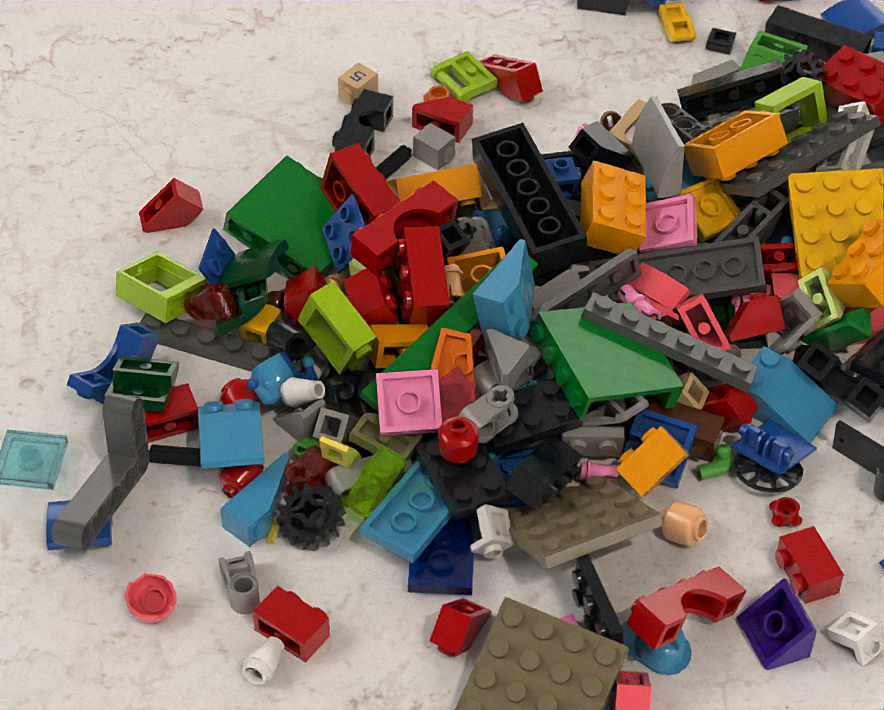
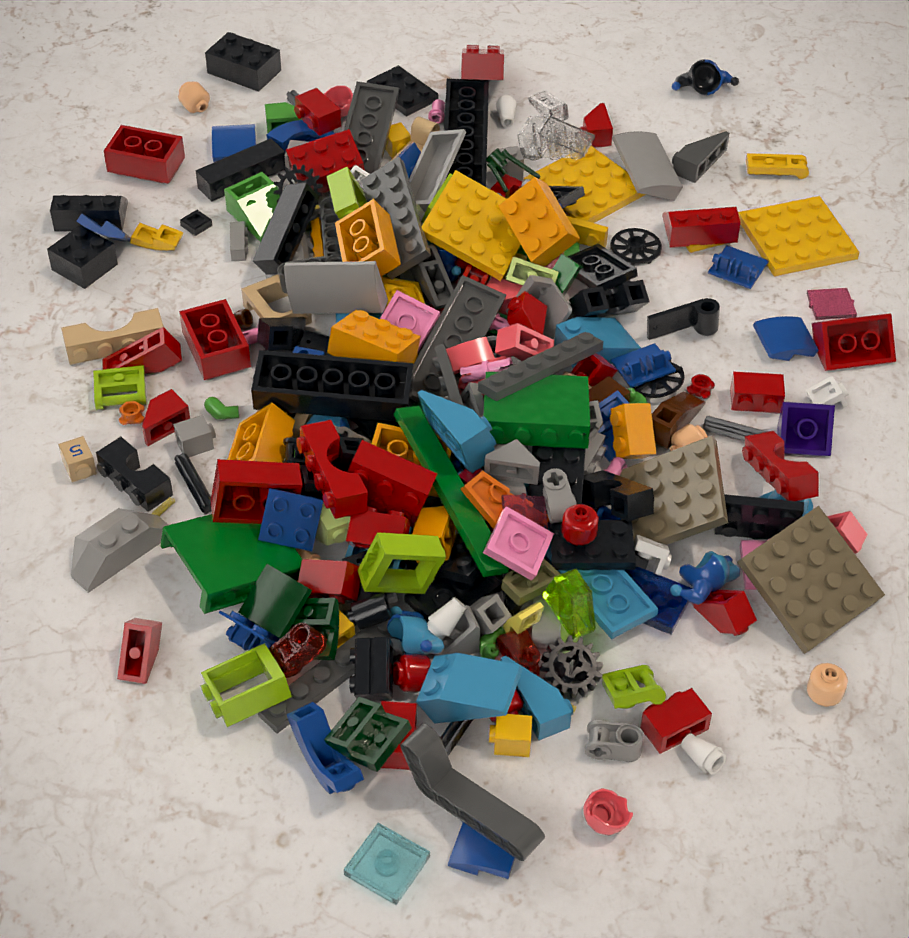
camera: 65 degrees left, 0 degrees up
(206, 497) = (511, 735): none -> yellow brick
(222, 364) = (372, 669): none -> black brick
(271, 141) = (113, 545): none -> light grey wedge
(309, 562) = (624, 690): none -> lime plate
(485, 589) = (706, 577): none -> blue piece
(497, 33) = (88, 344): none -> tan arch
(560, 108) = (215, 339): none -> red brick
(717, 496) = (674, 415): none -> reddish brown slope
(739, 565) = (729, 428): none -> axle

